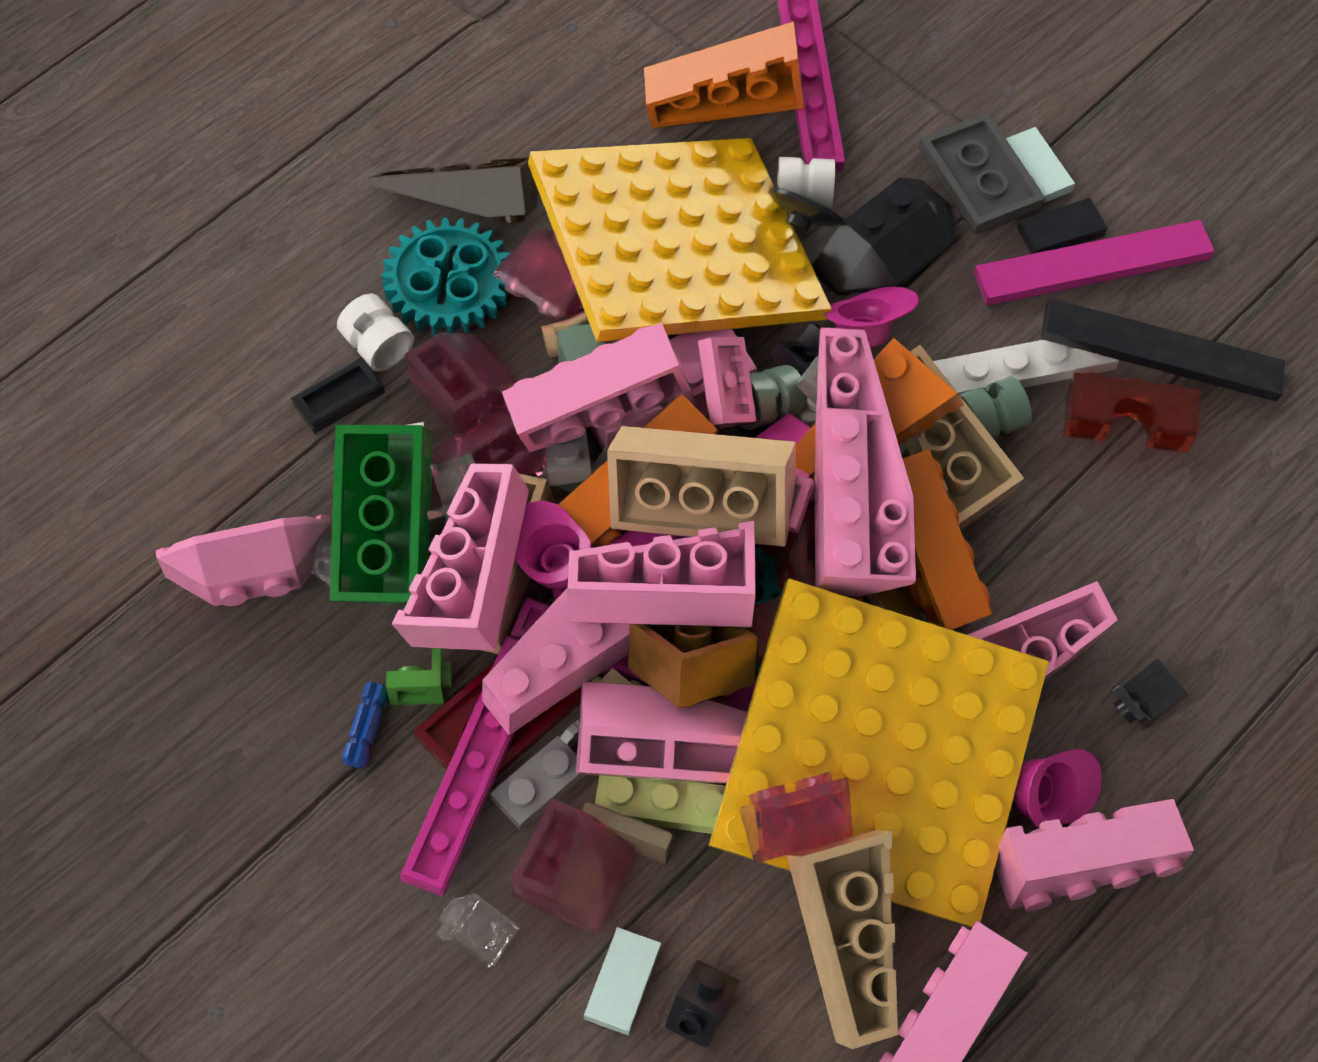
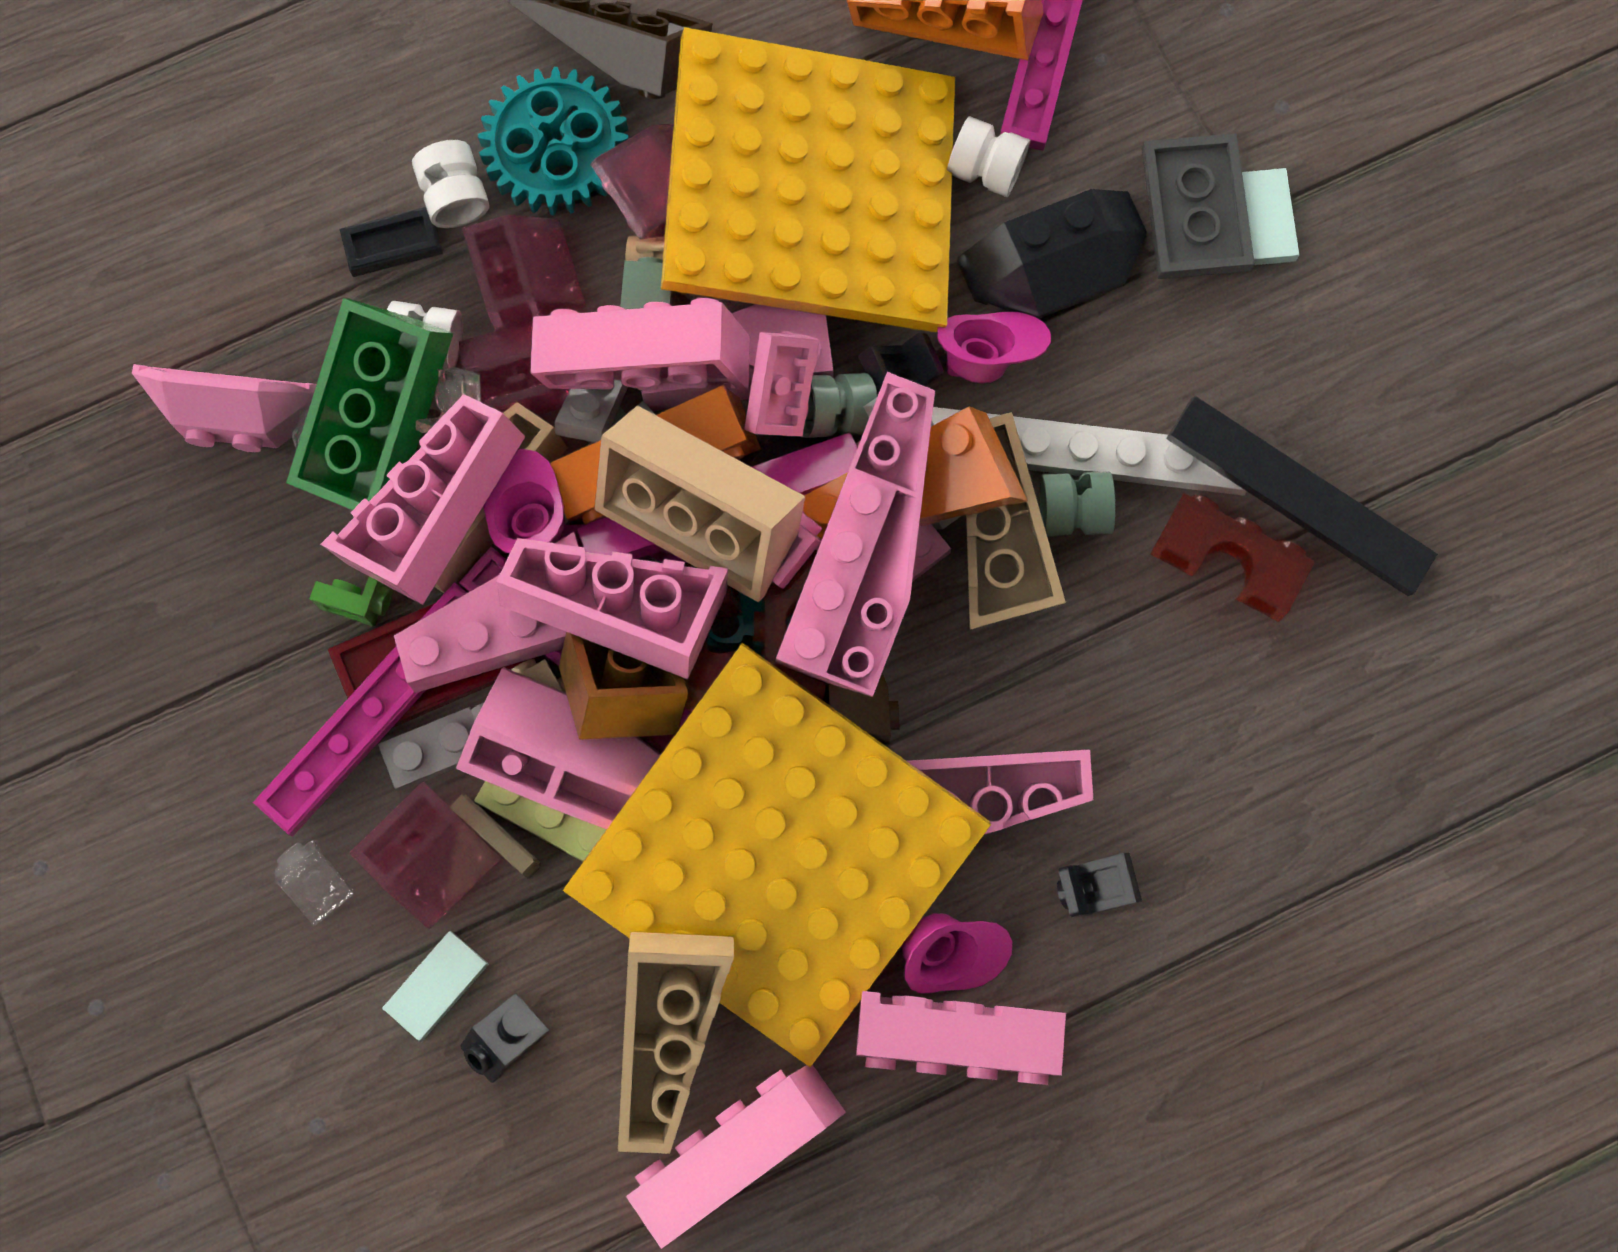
camera: 25 degrees right, 15 degrees up
(365, 725) = (282, 626): blue axle -> none
(797, 820) = (646, 902): clear pink slope -> none
(804, 211) = (962, 197): black dish -> none
(944, 561) = (933, 642): orange wedge -> none
(1062, 227) = (1260, 304): black tile -> none
(1093, 262) = (1278, 359): dark pink tile -> none

